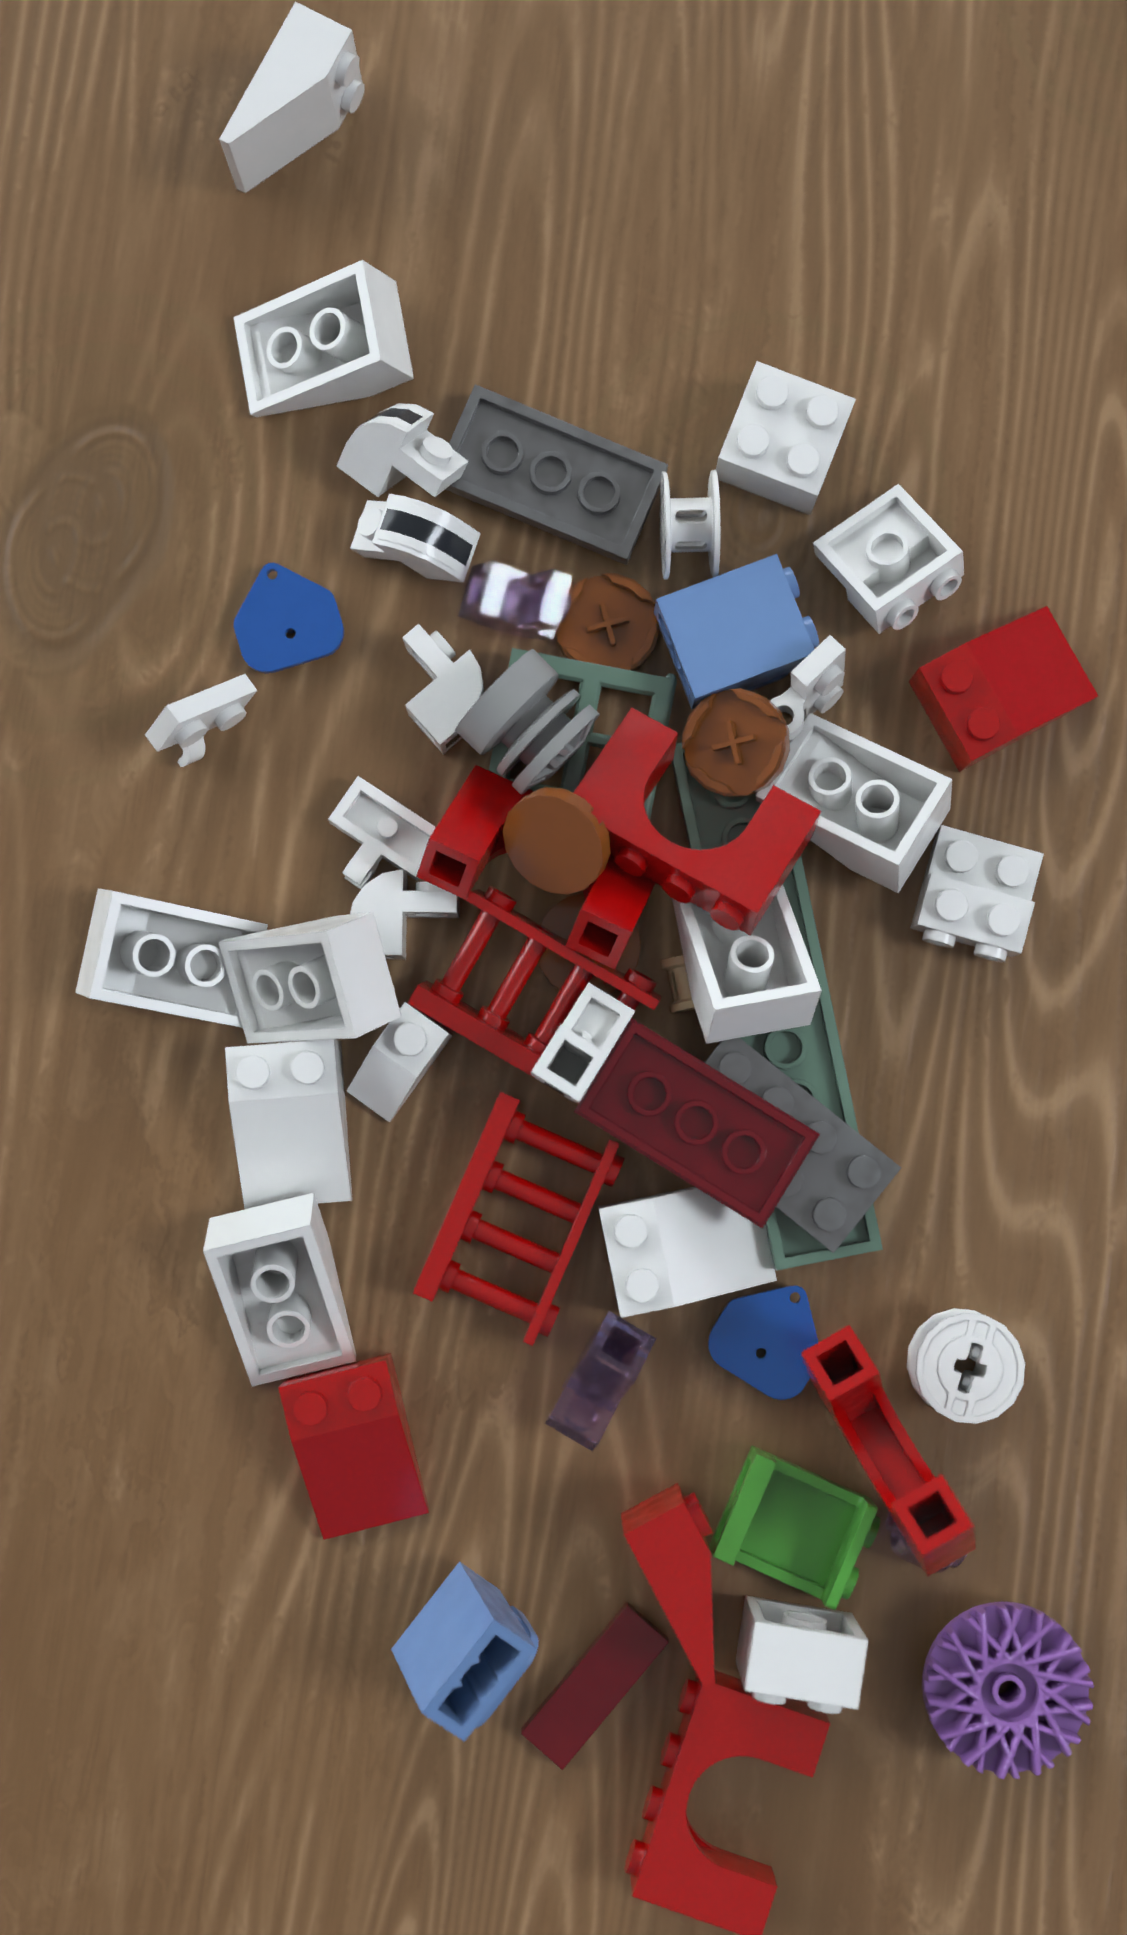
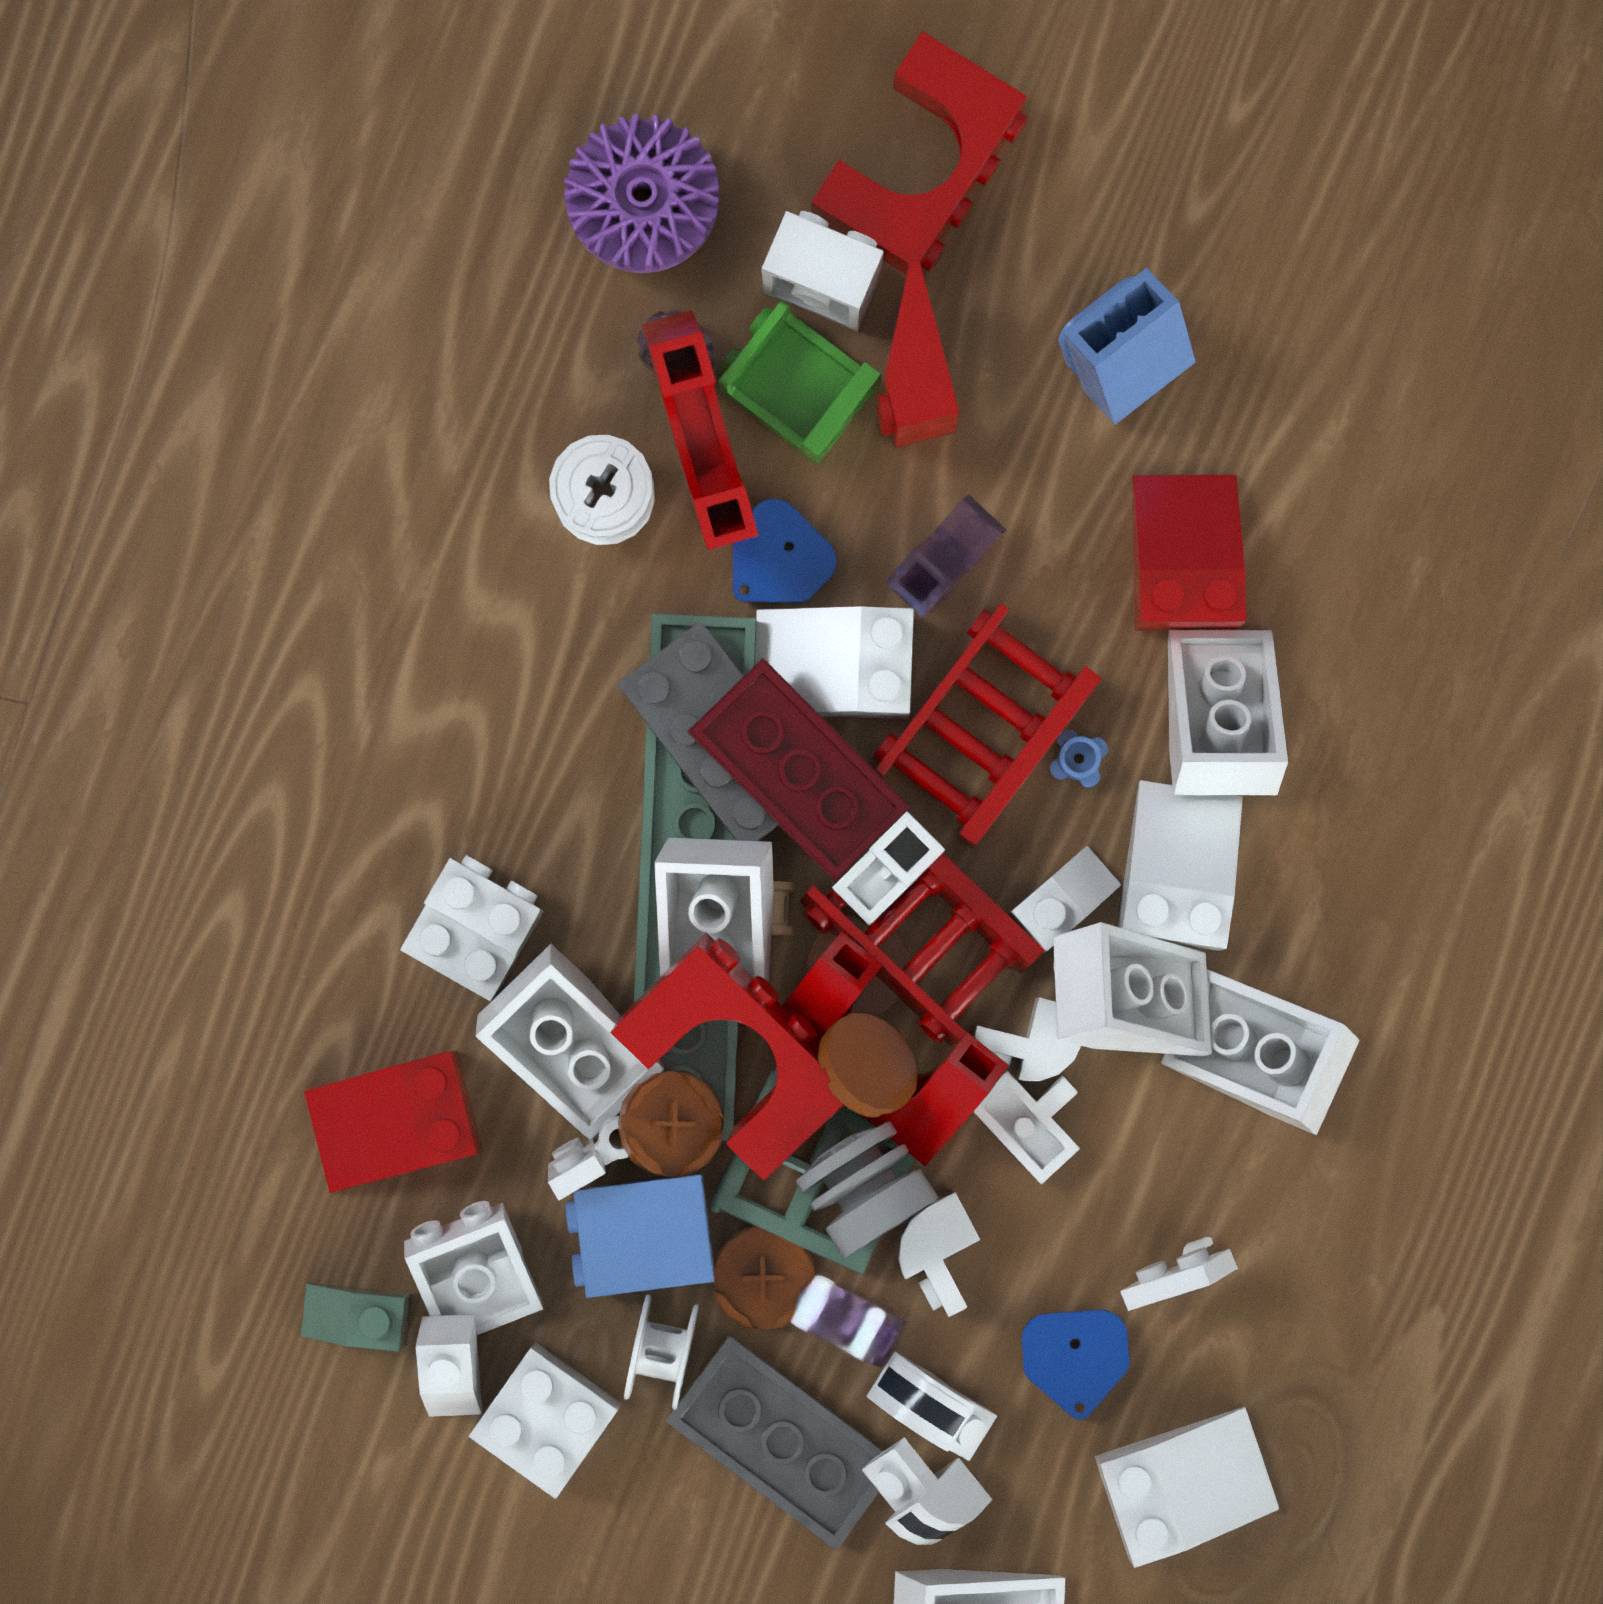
camera: 165 degrees left, 0 degrees up
(152, 524) = (1186, 1486): none -> white slope
(406, 1218) = (1091, 750): none -> medium blue plate
(594, 1685) = (1015, 285): dark red tile -> none
(892, 466) = (449, 1365): none -> white slope
(987, 493) = (356, 1316): none -> sand green slope

